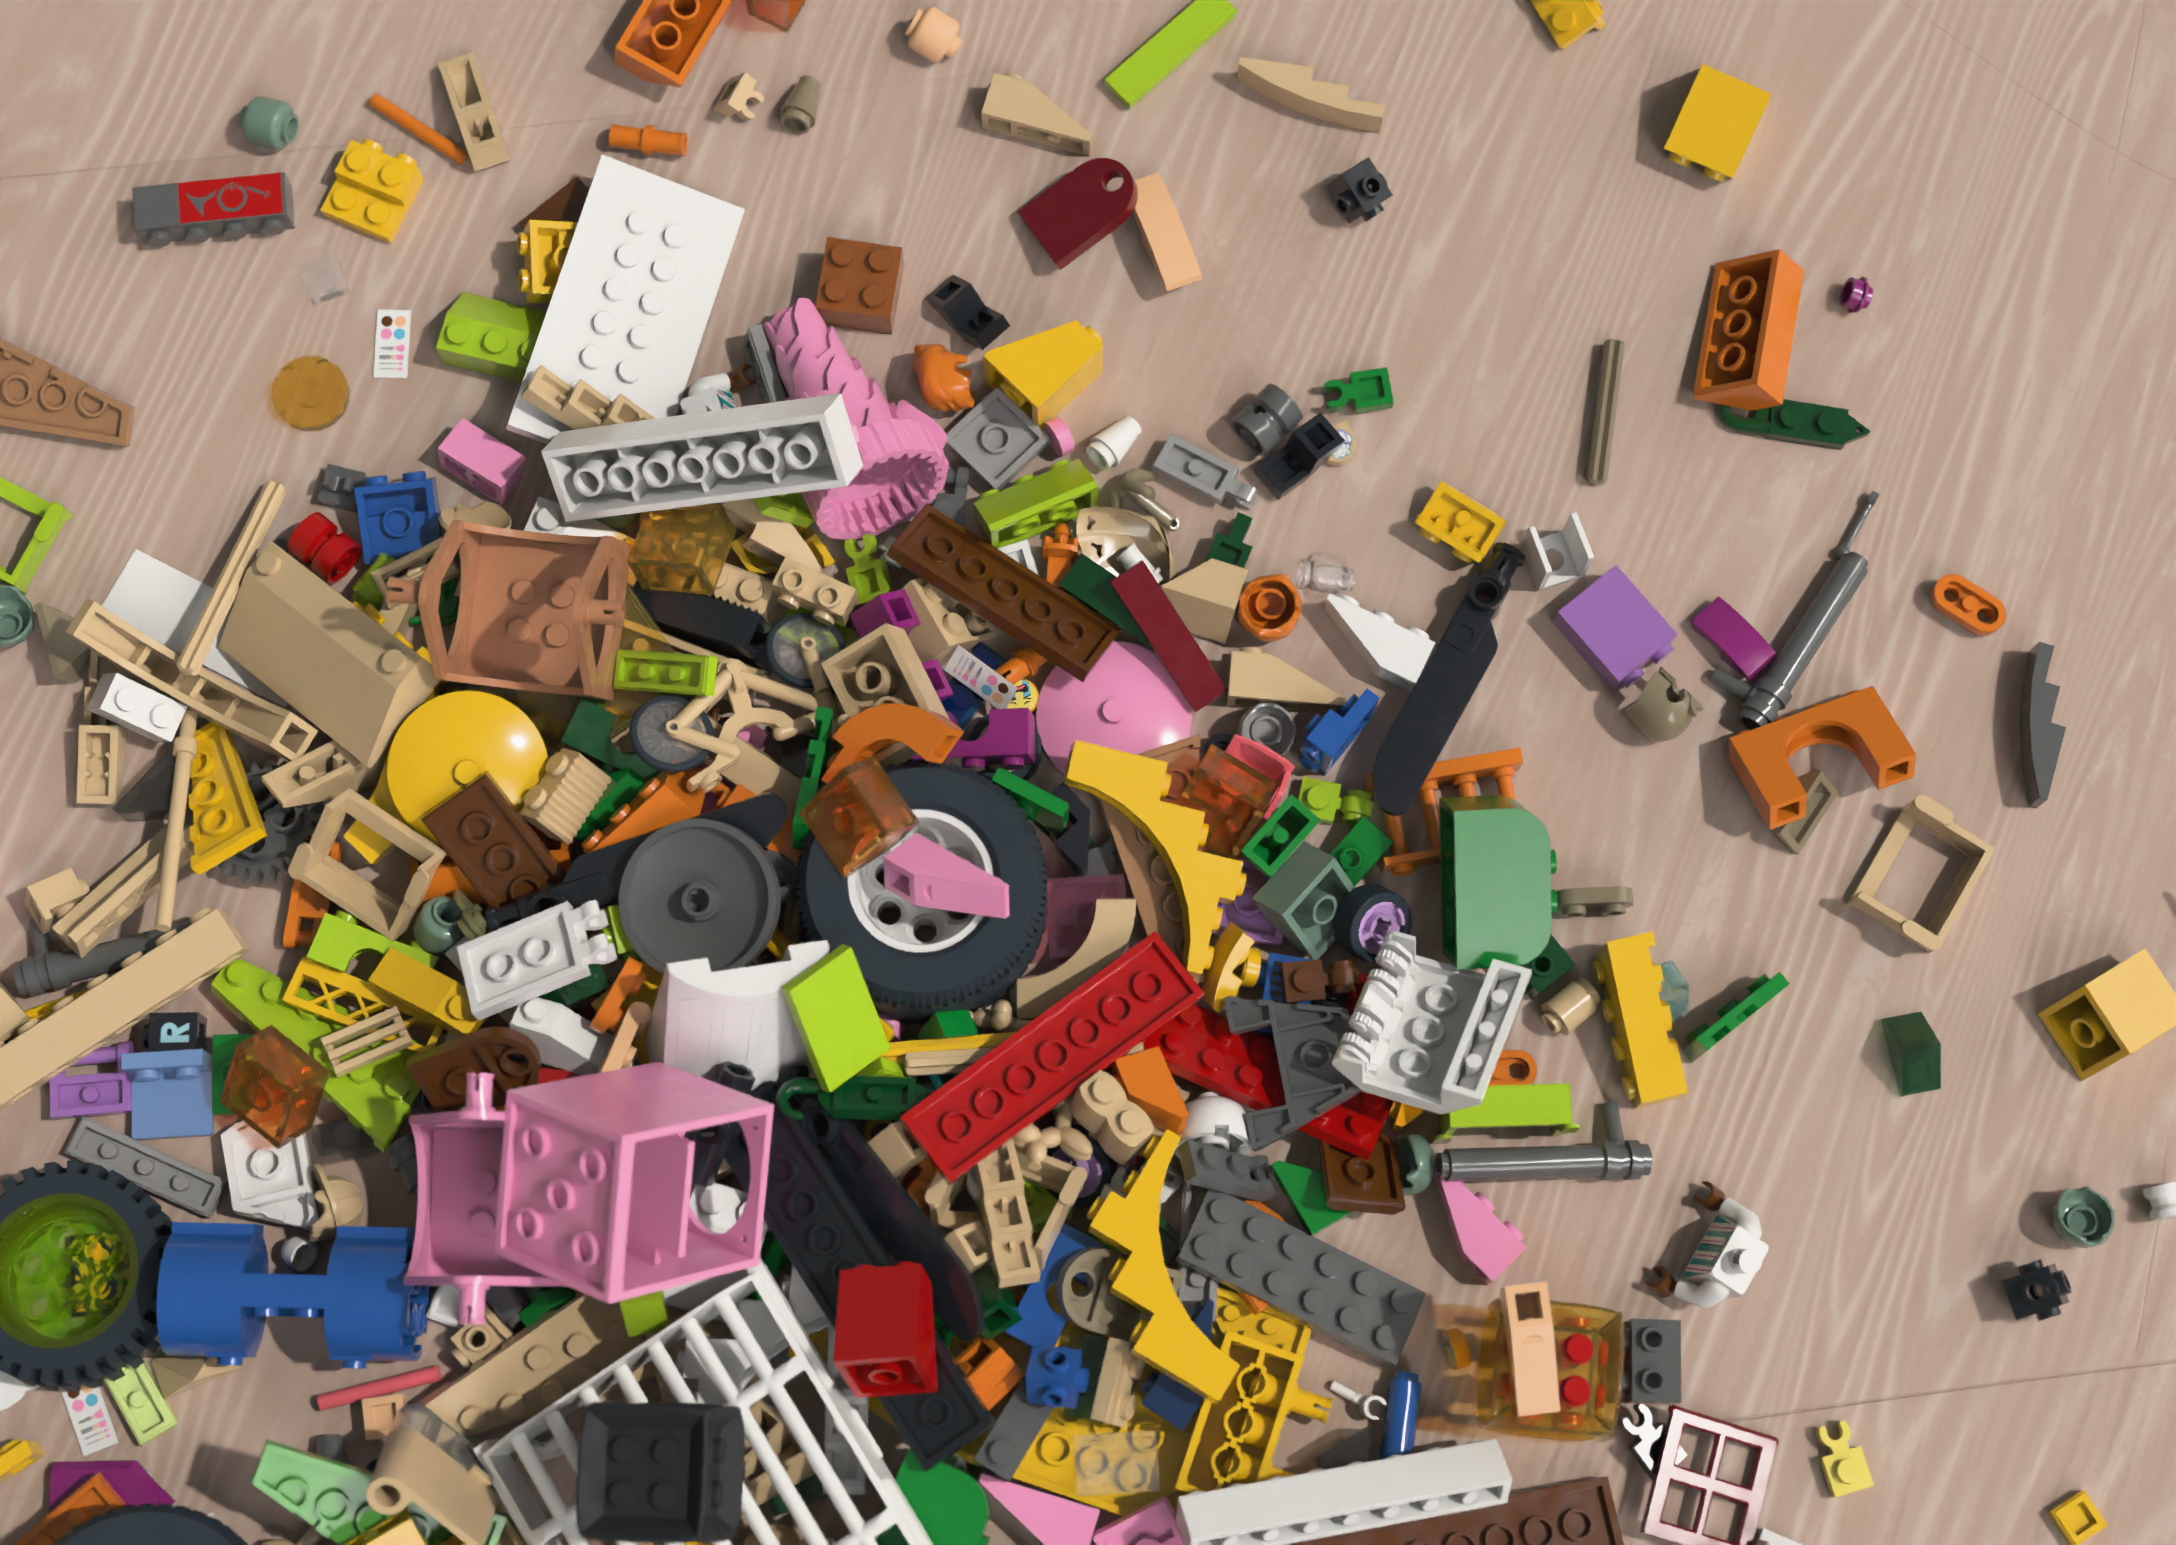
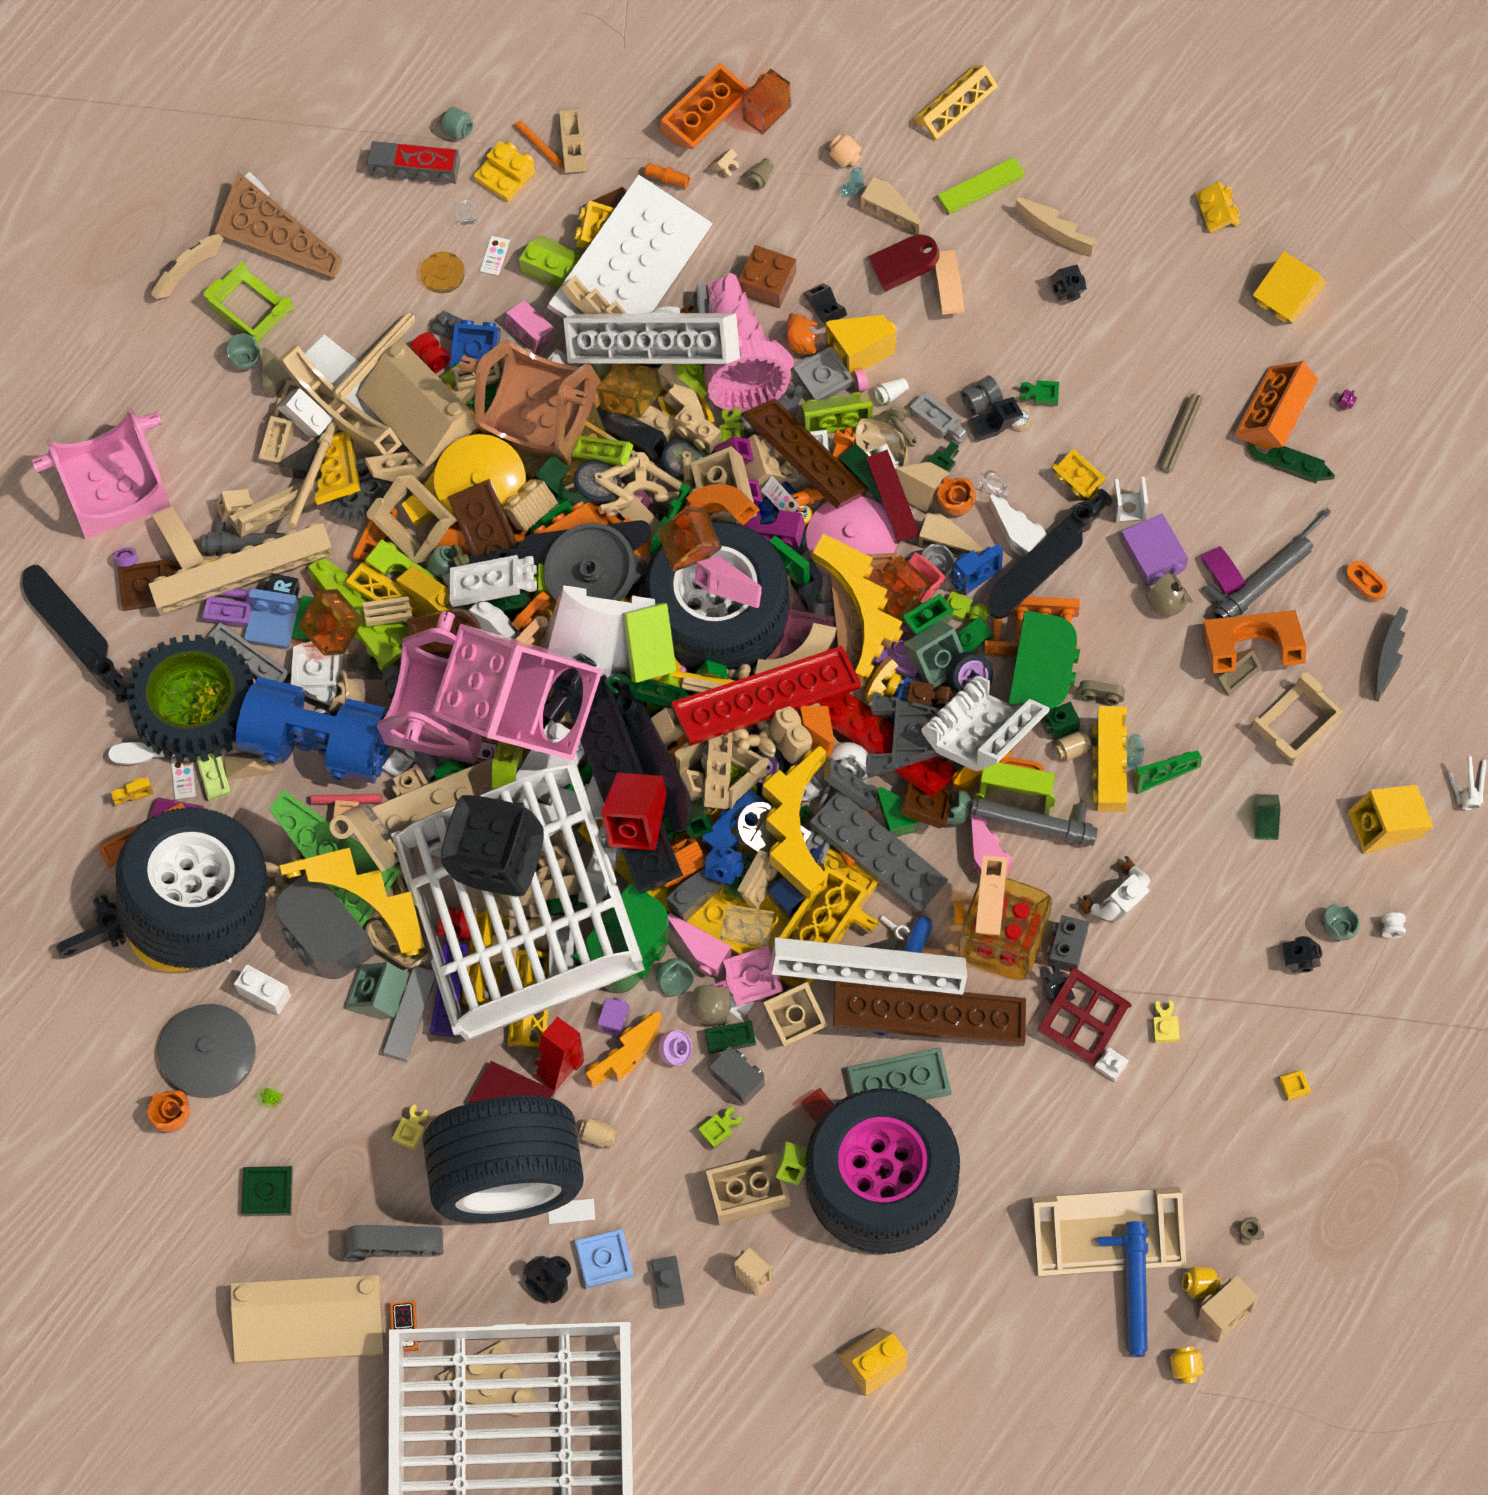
camera: 20 degrees right, 10 degrees down
(966, 87) = (856, 185): none -> clear light blue arm

